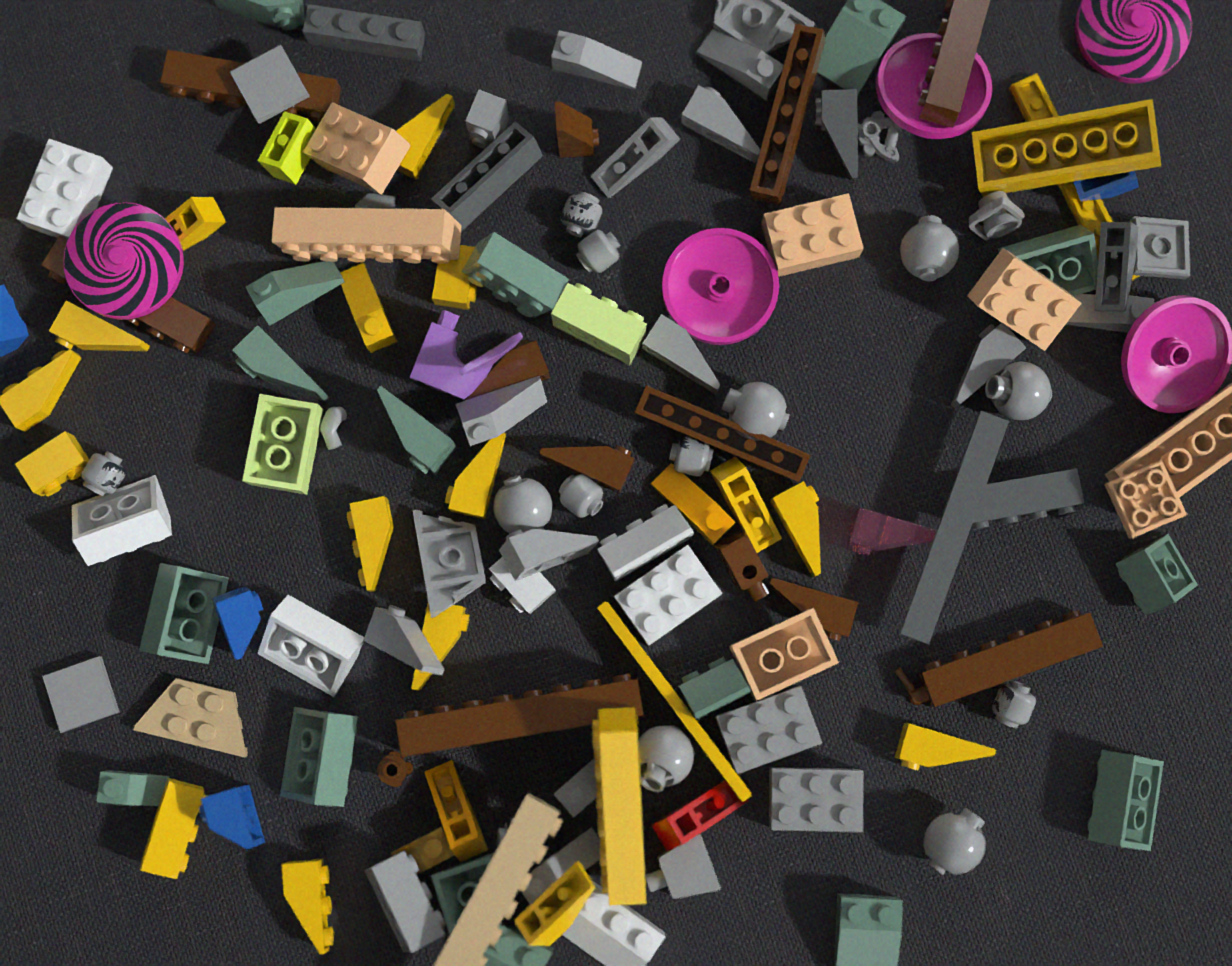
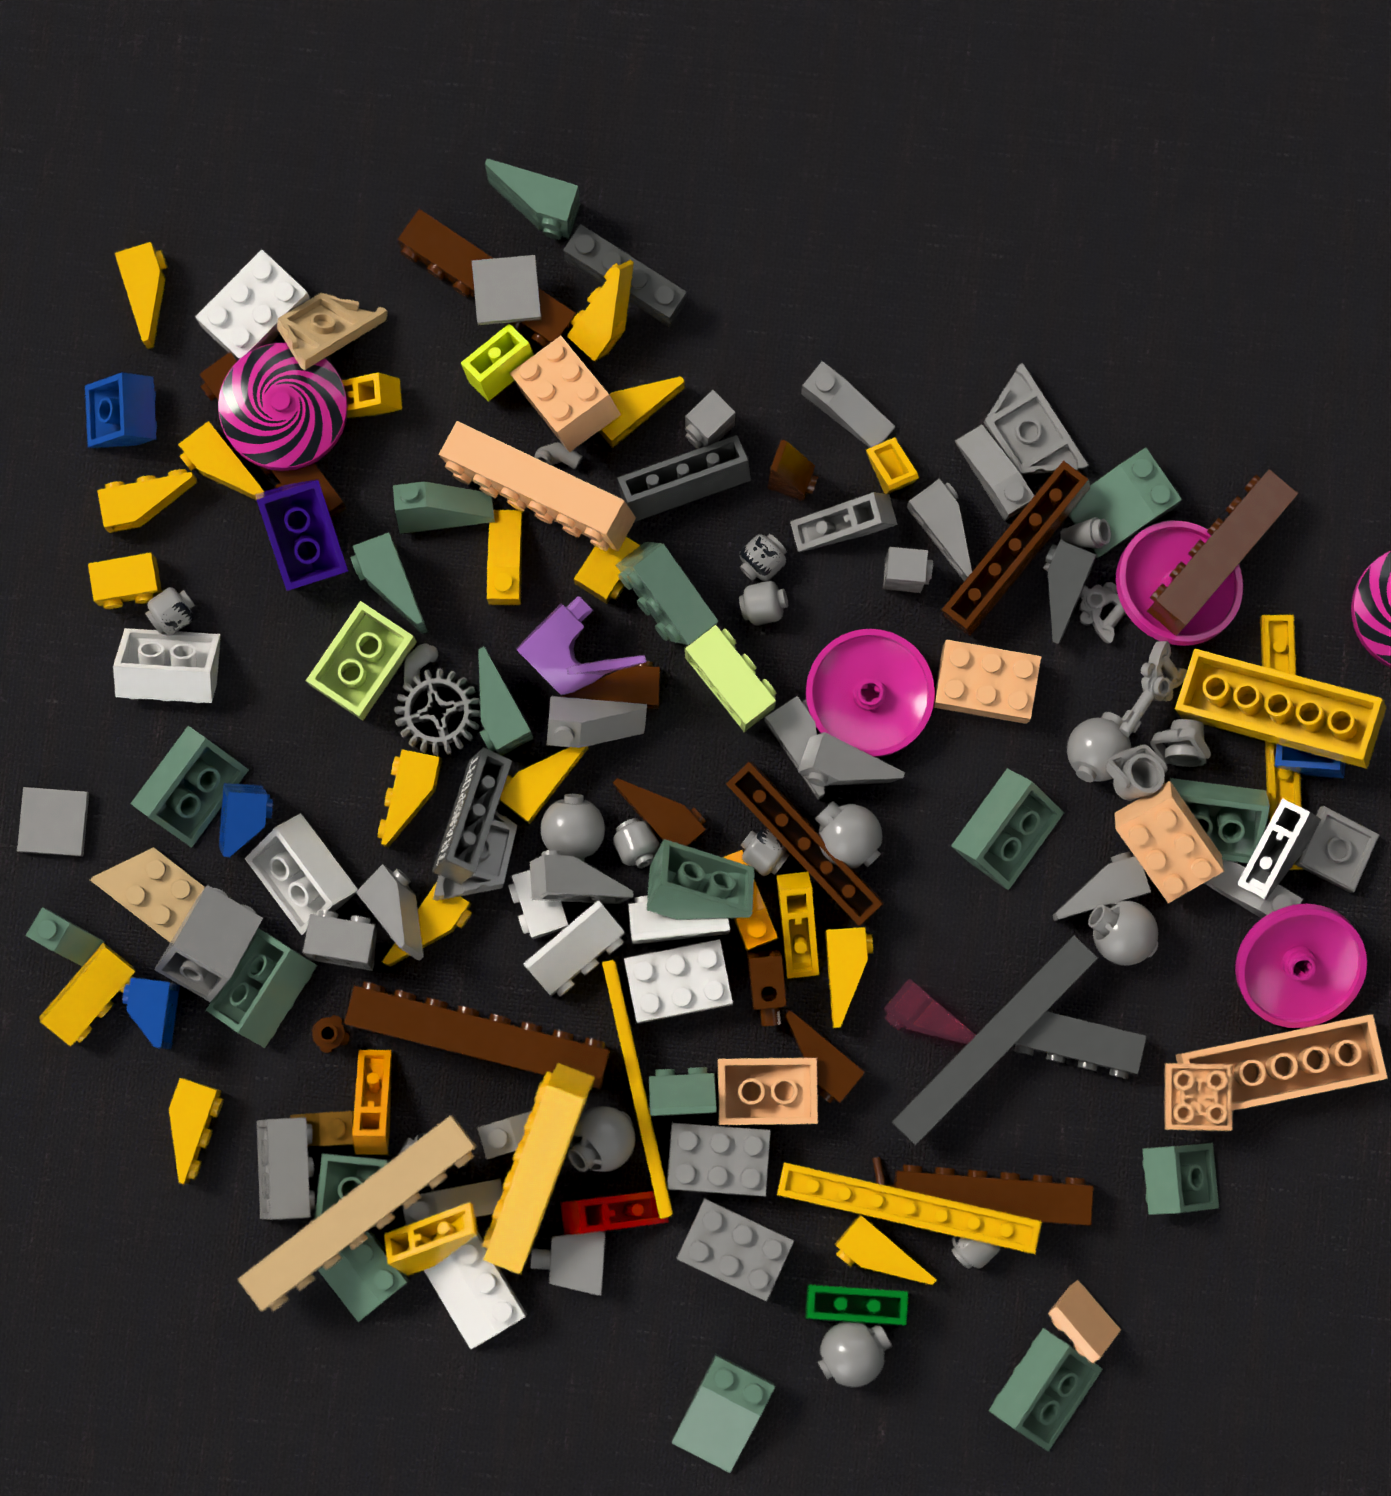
camera: 20 degrees right, 0 degrees up
(130, 180) = (325, 326): none -> tan wing
(185, 359) = (301, 533): none -> dark purple slope
(257, 738) = (209, 943): none -> light grey slope
(362, 73) = (605, 318): none -> yellow slope
(368, 687) = (340, 940): none -> light grey slope
(376, 450) = (423, 715): none -> light grey gear
(433, 533) = (472, 816): none -> dark grey brick
(570, 606) = (575, 949): none -> white slope
(649, 506) = (698, 884): none -> sand green slope
(655, 93) = (891, 466): none -> yellow slope
(705, 171) = (907, 569): none -> light grey brick
(719, 354) = (838, 763): none -> light grey slope
(841, 77) = (1088, 534): none -> light grey cone
(883, 348) = (1008, 828): none -> sand green slope
(938, 800) = (856, 1304): none -> green brick
(947, 699) = (909, 1208): none -> yellow tile
(953, 176) = (1154, 685): none -> light grey piece
(976, 253) = (1141, 774): none -> light grey piece
(1134, 730) = (1084, 1322): none -> light nougat tile

